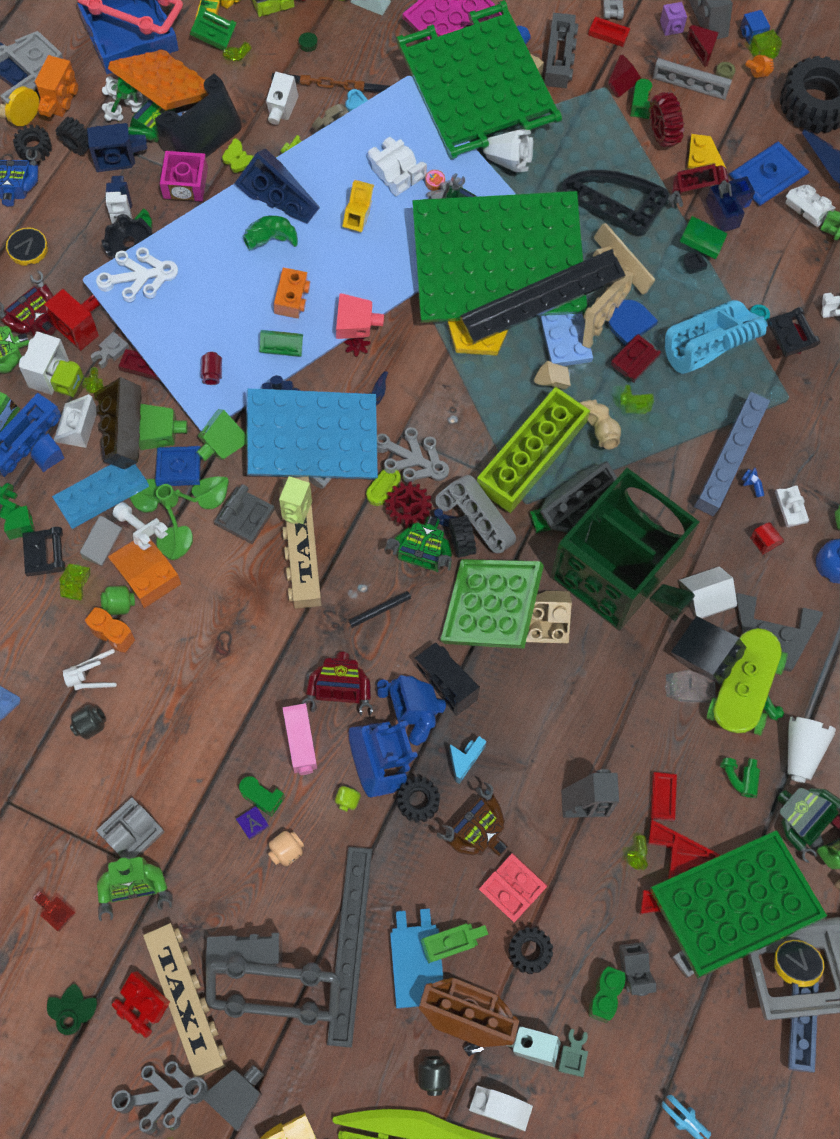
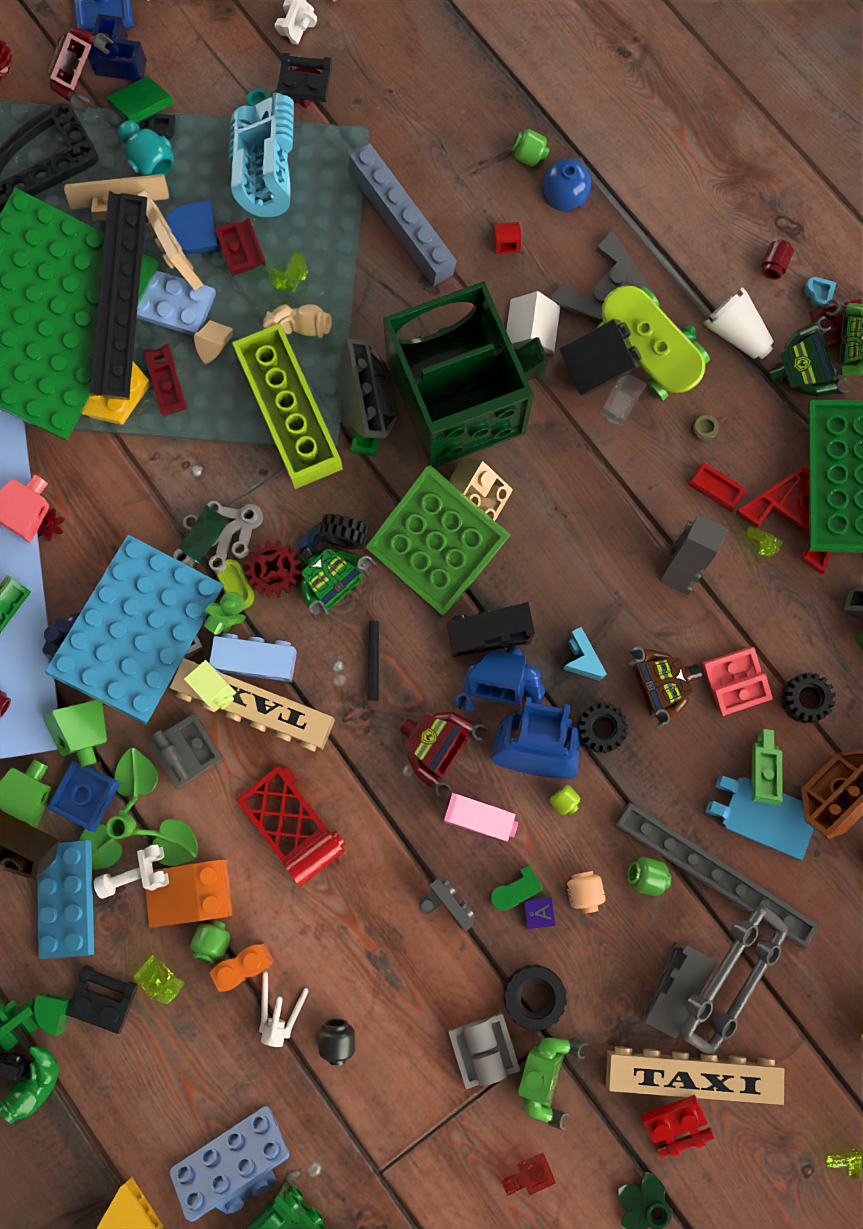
camera: 60 degrees left, 10 degrees up
(100, 541) = (126, 927): light grey slope -> none
(163, 1097) = (786, 1145): dark grey plant -> none
(172, 838) = (554, 1008): none -> black tyre
(217, 638) = (315, 851): none -> red piece
(229, 742) = (443, 893): none -> dark grey plate
(235, 1096) = (816, 1070): dark grey torso -> none
(321, 890) = (649, 876): none -> bright green head
(335, 525) = (253, 657): none -> light blue brick
(355, 488) = (225, 614): none -> bright green hips
(380, 387) = (114, 526): dark blue bar -> none
(406, 443) = (203, 534): none -> clear green slope
(496, 534) = (358, 494): light grey beam -> none
(504, 361) = (165, 380): none -> dark red plate
(666, 260) = (145, 149): none -> teal piece
(703, 151) = (35, 44): yellow wing -> none
(706, 763) = (705, 427): none -> olive tile
(749, 785) = (741, 395): green plant -> none
(751, 478) = (435, 214): blue plate -> none
(792, 506) = (489, 193): white hips -> none

